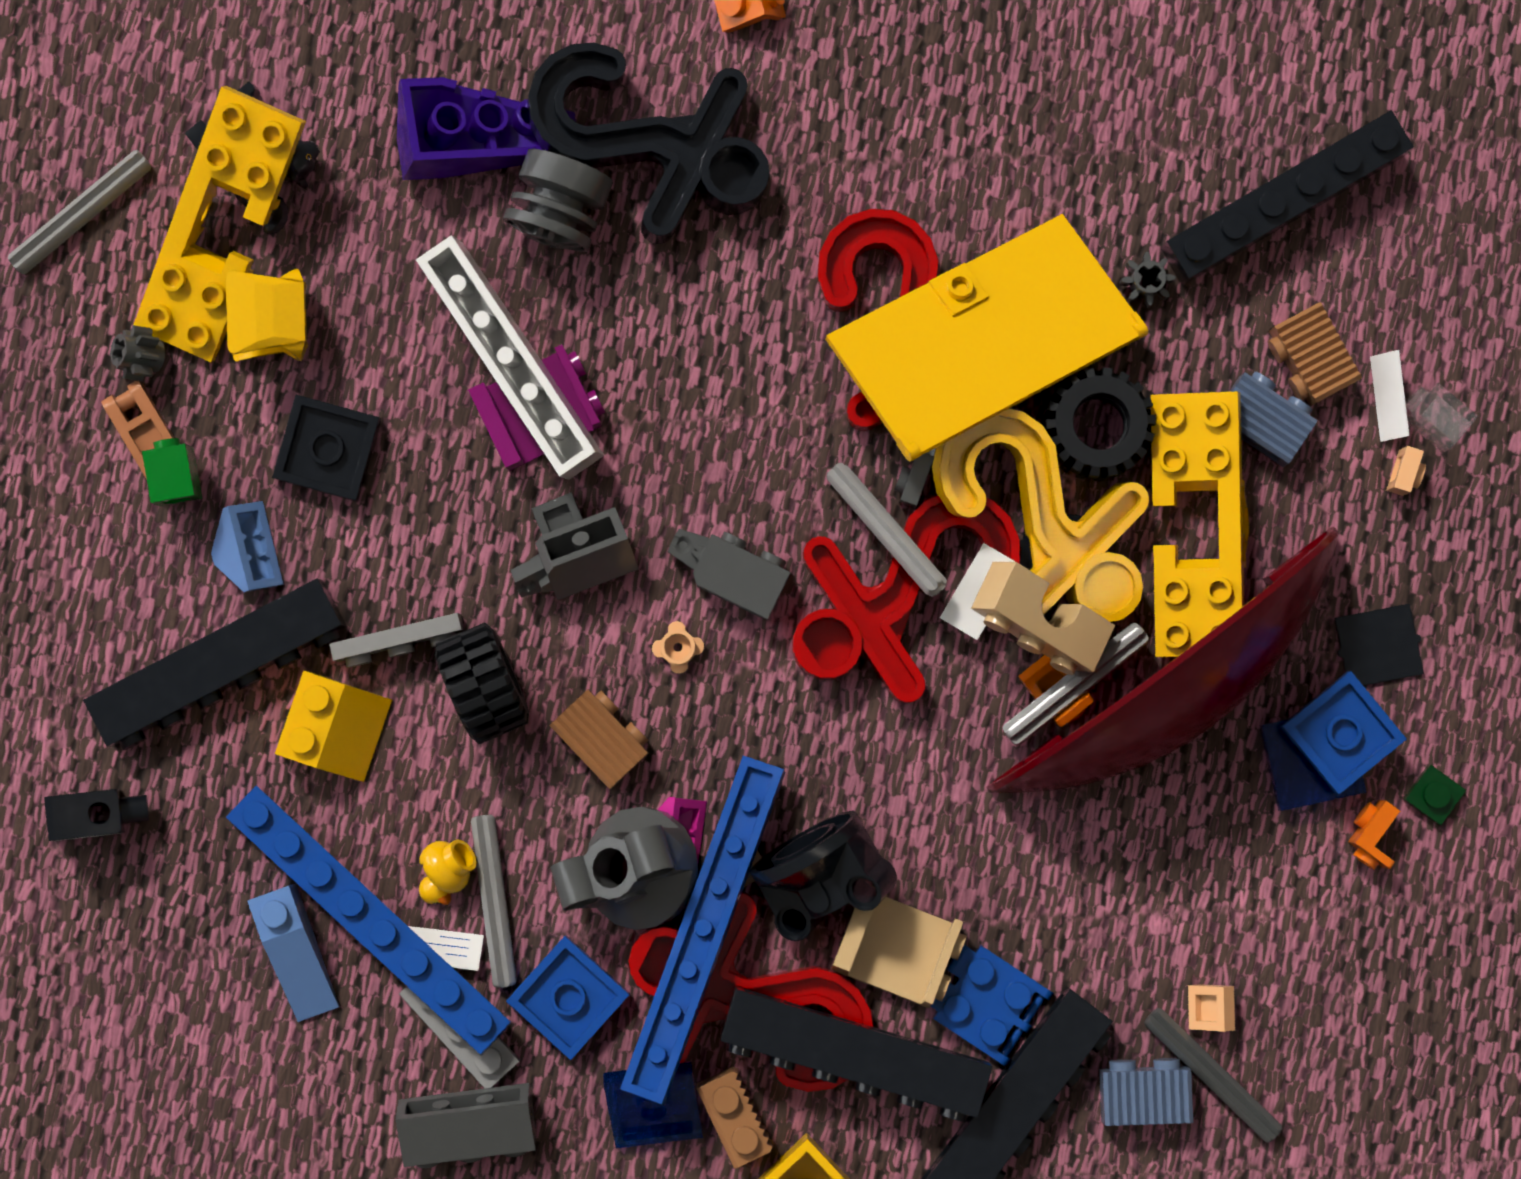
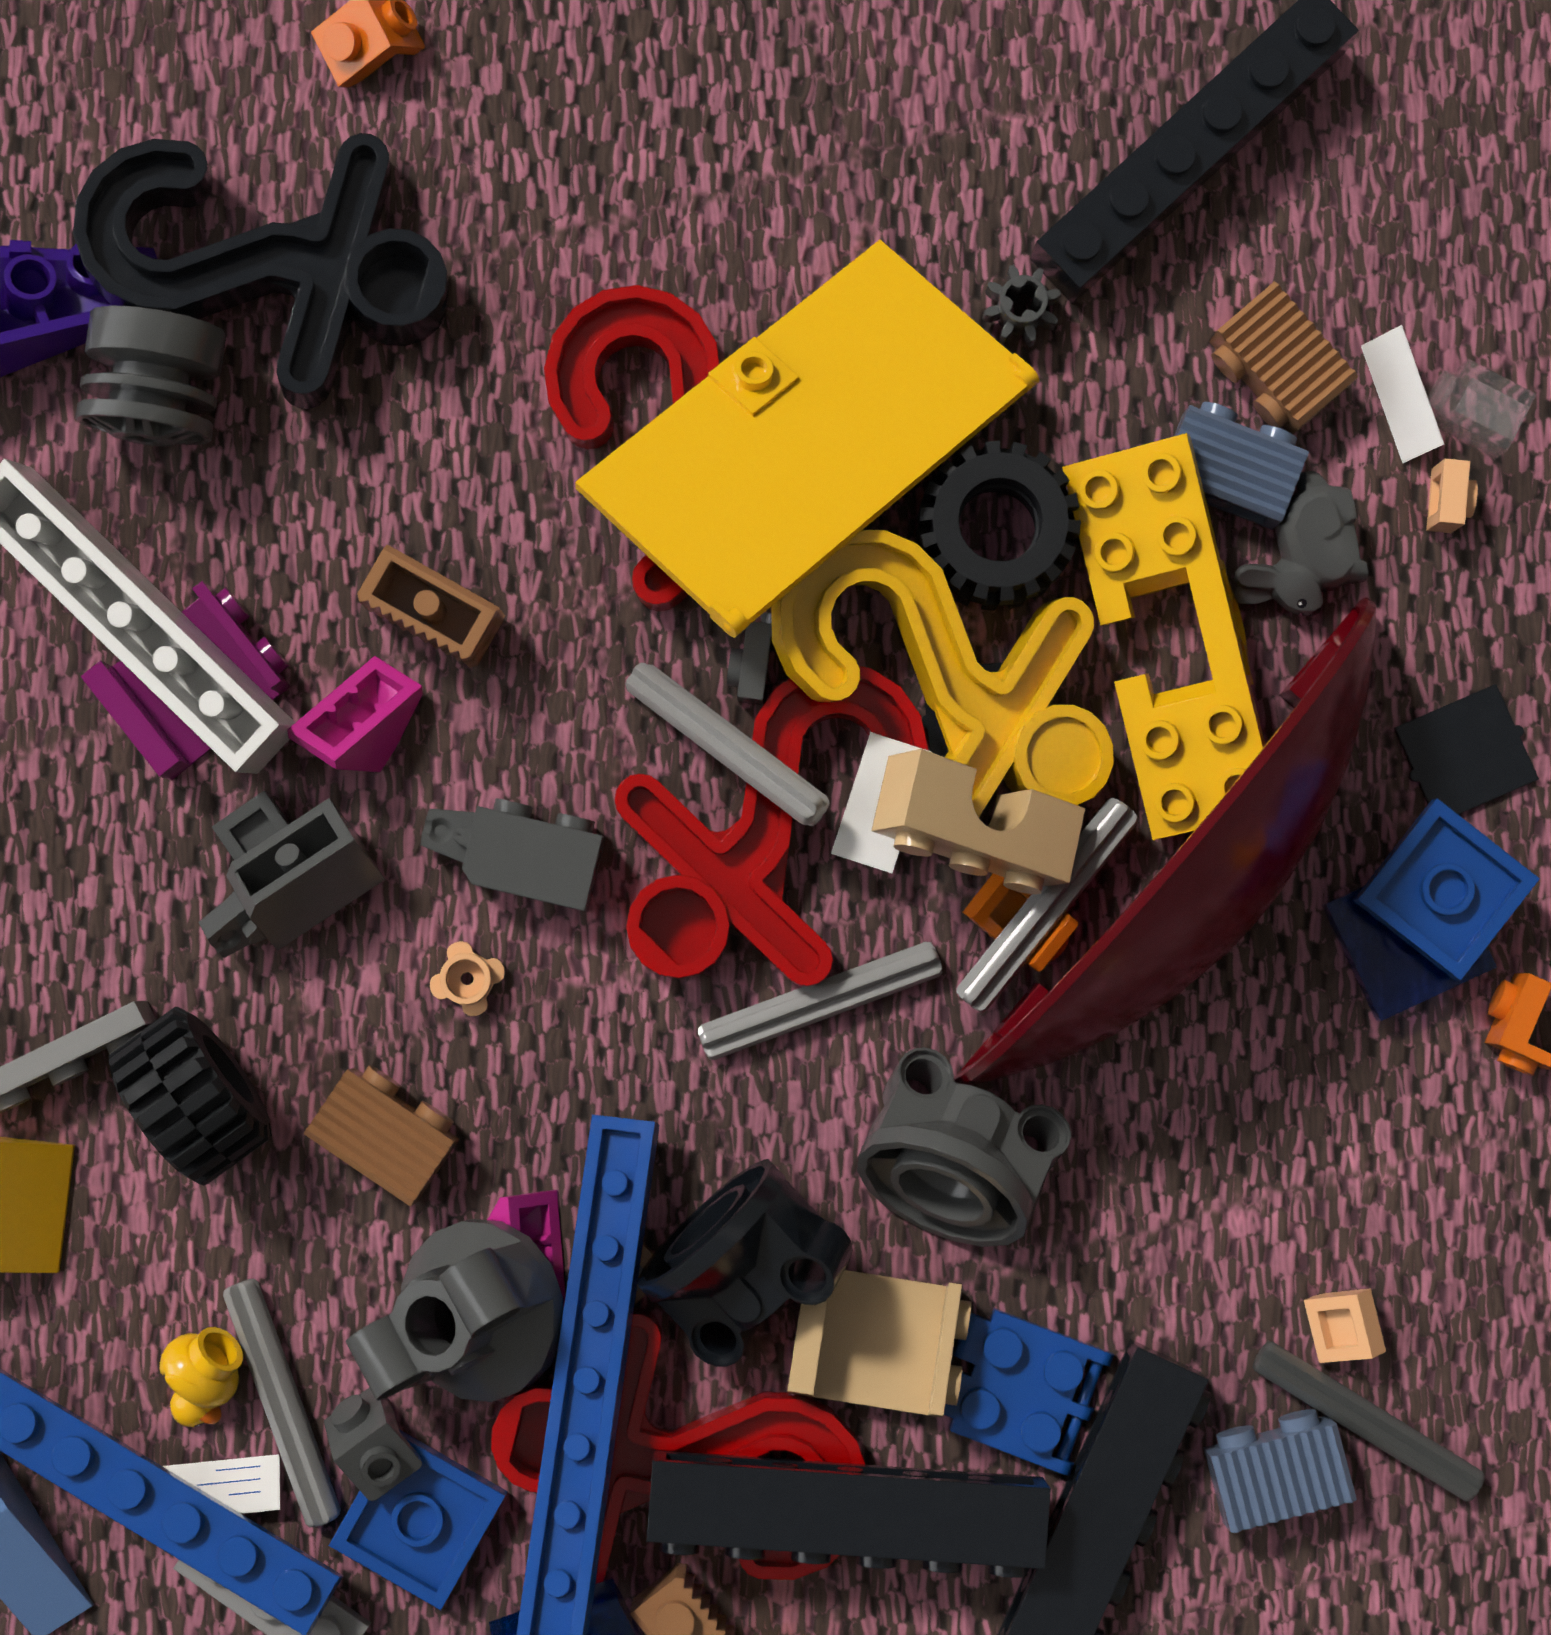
camera: 15 degrees left, 0 degrees up
(548, 940) = (369, 1444): none -> dark grey bracket
(645, 458) = (360, 719): none -> dark pink slope
(709, 394) = (430, 606): none -> medium nougat brick
(910, 714) = (820, 1001): none -> light grey axle
(979, 836) = (958, 1155): none -> dark grey piece
(1307, 489) = (1315, 548): none -> dark grey animal

